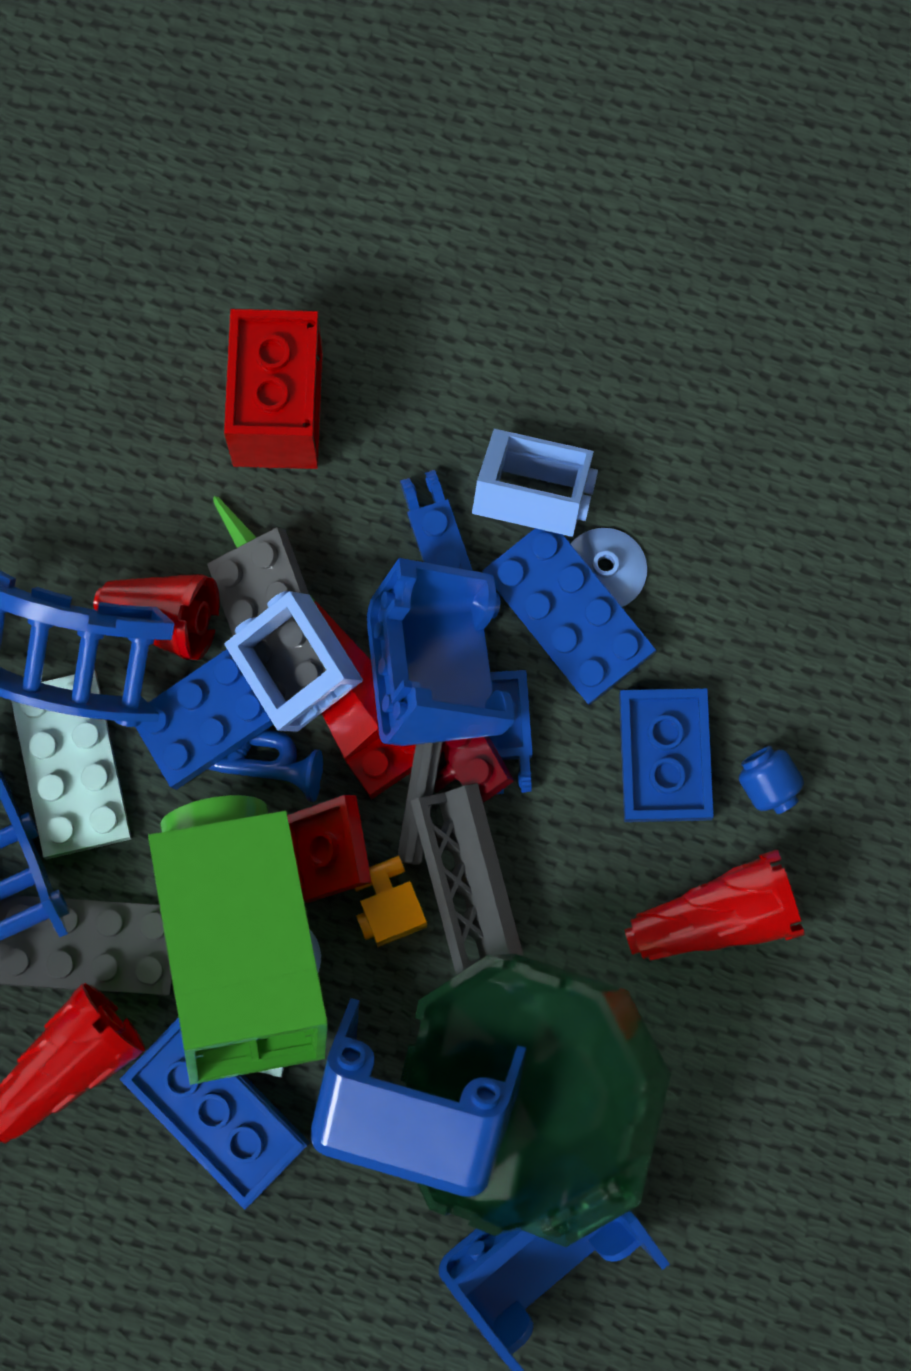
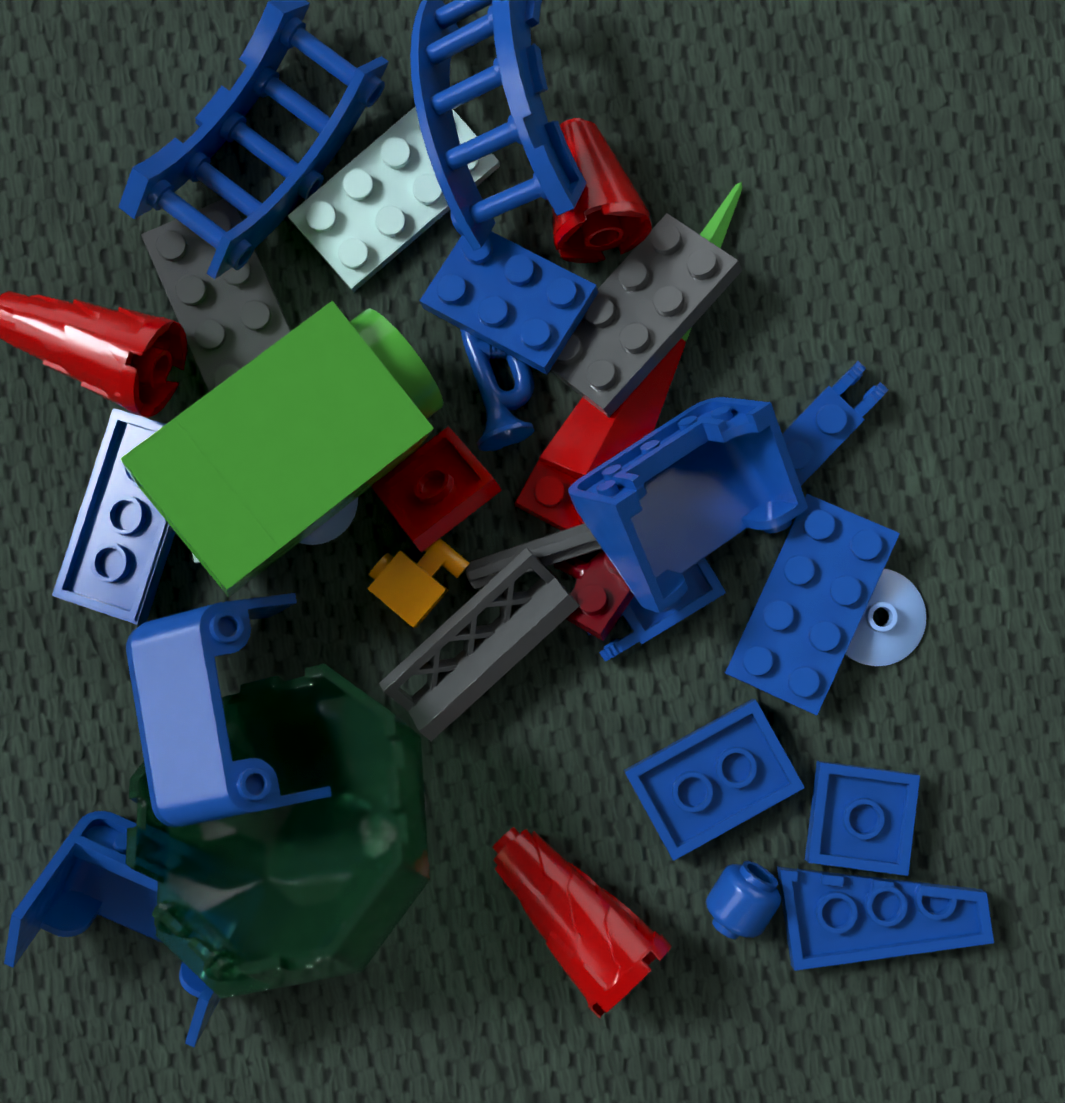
camera: 65 degrees right, 10 degrees up
(273, 388) = (886, 174): red container -> none
(320, 693) = (618, 404): light blue window -> none
(540, 461) = (955, 491): light blue window -> none
(752, 658) = (862, 818): none -> blue plate
(831, 696) = (872, 918): none -> blue wing

